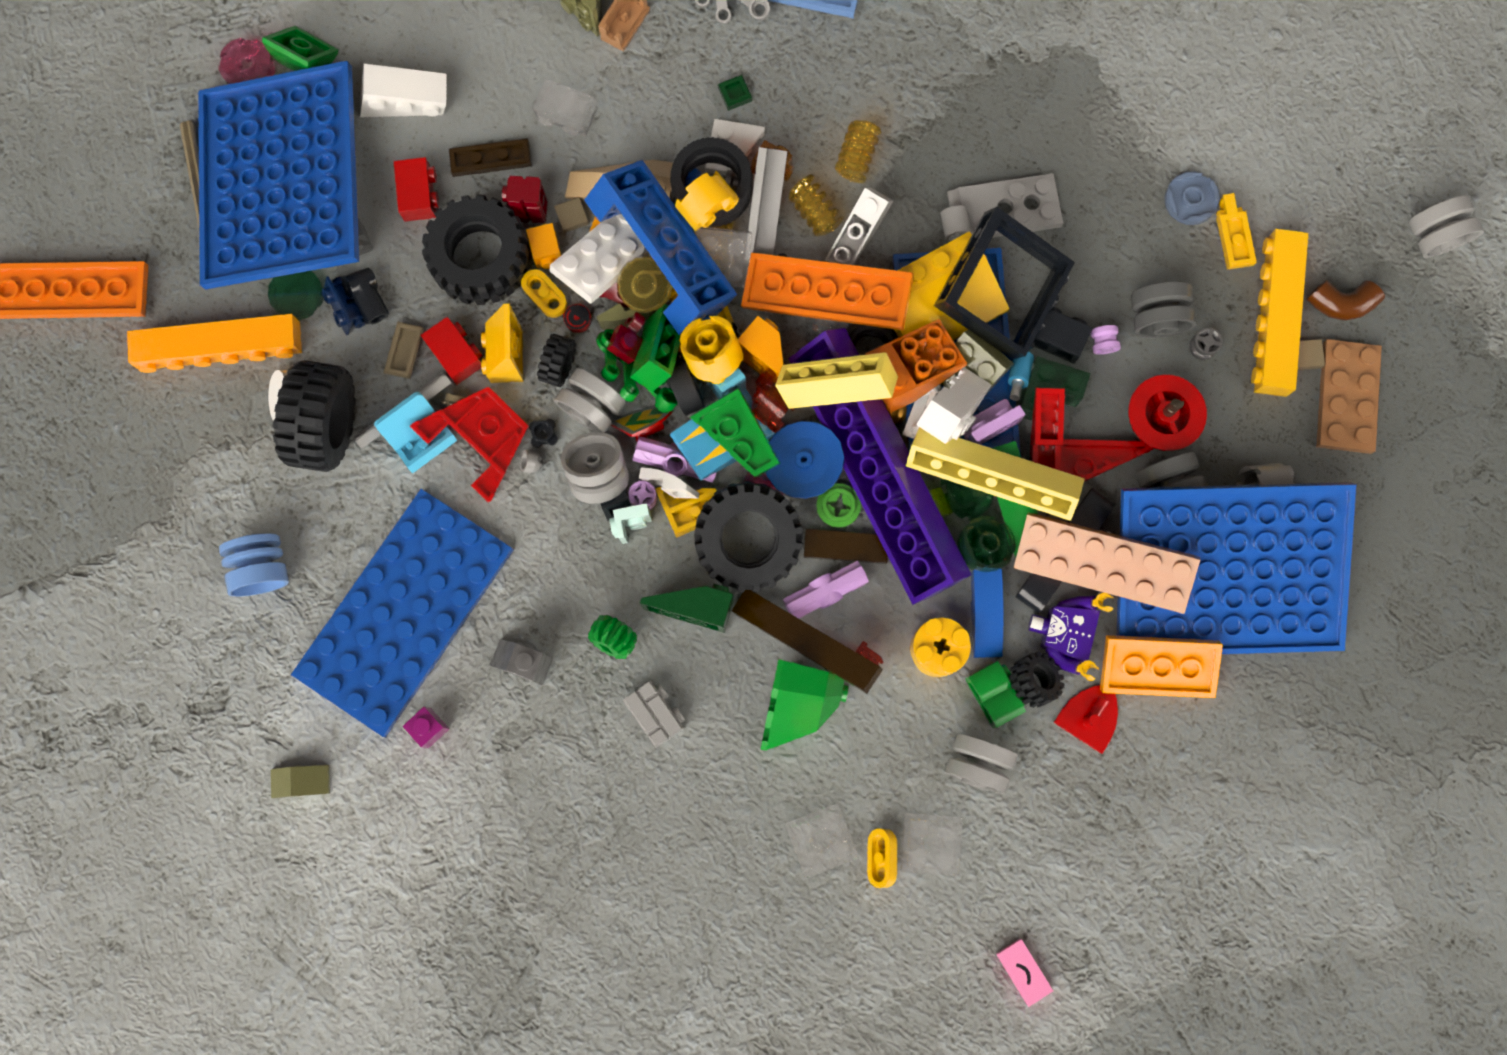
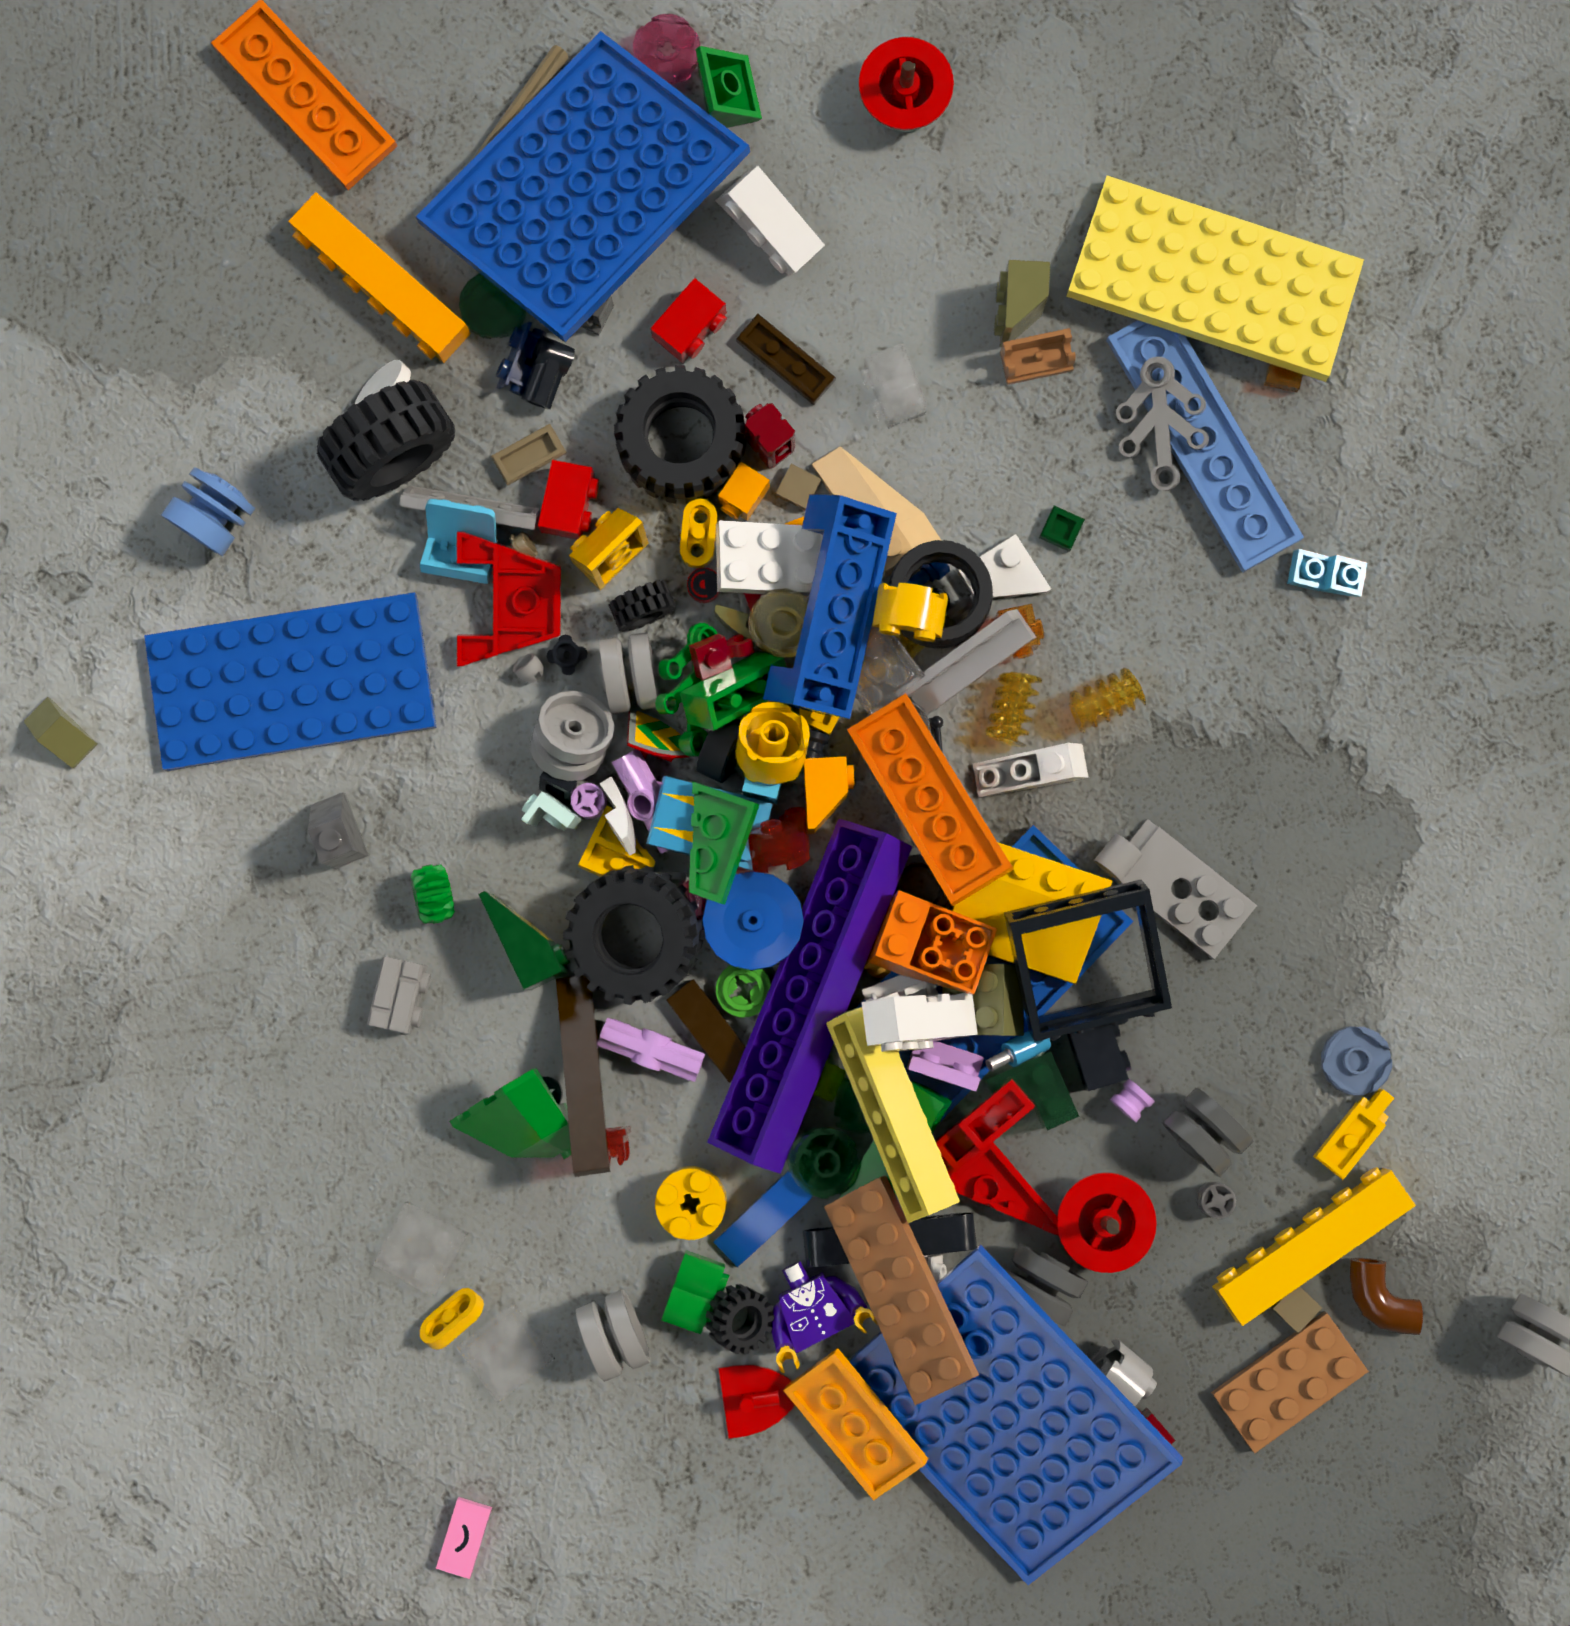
camera: 50 degrees right, 5 degrees up
(425, 727) = (204, 801): magenta brick -> none
(837, 380) = (843, 889): light yellow brick -> none

